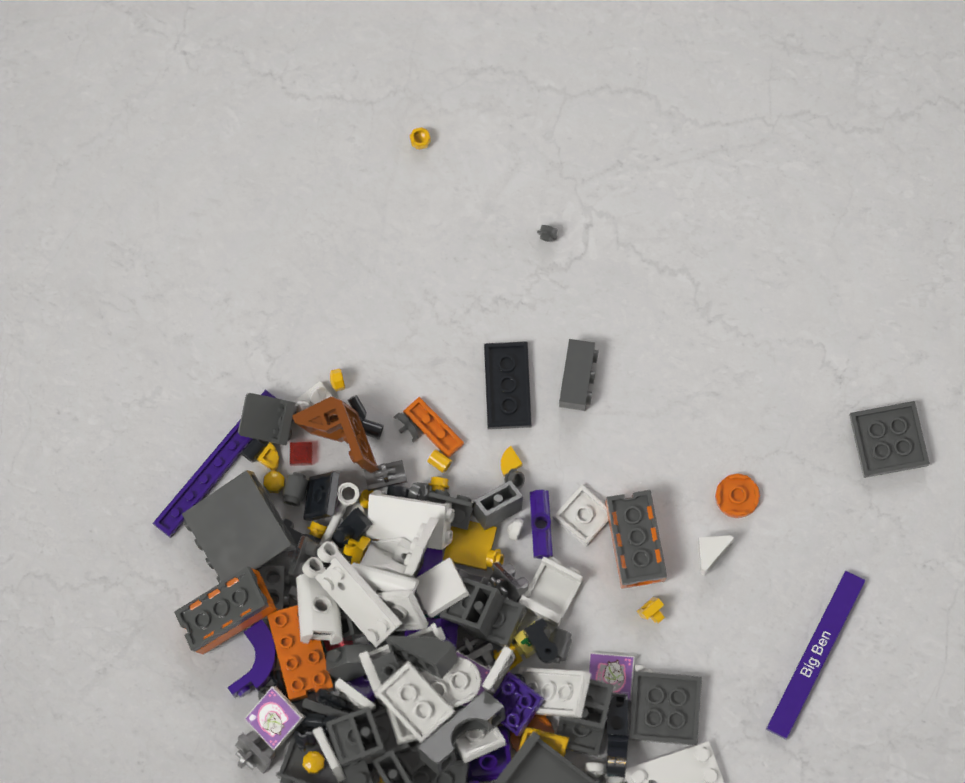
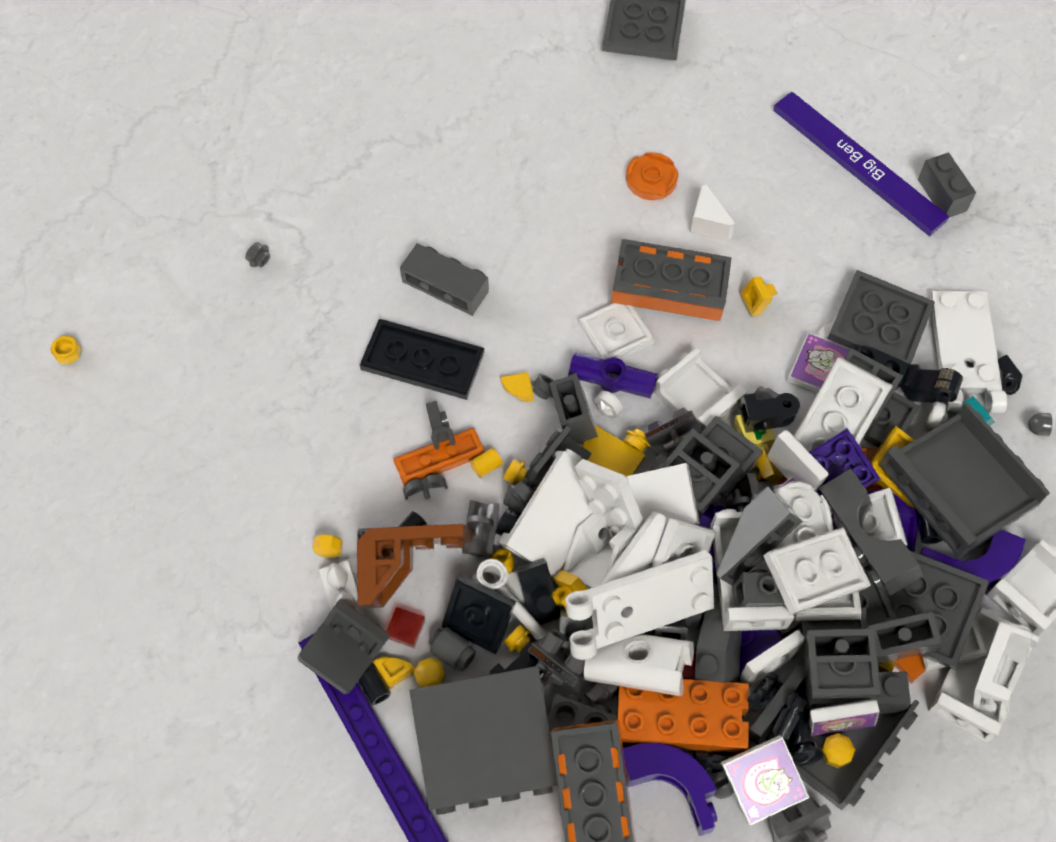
camera: 75 degrees left, 10 degrees down
(453, 415) = (439, 424): none -> dark grey plate
(813, 728) = (946, 184): none -> dark grey brick

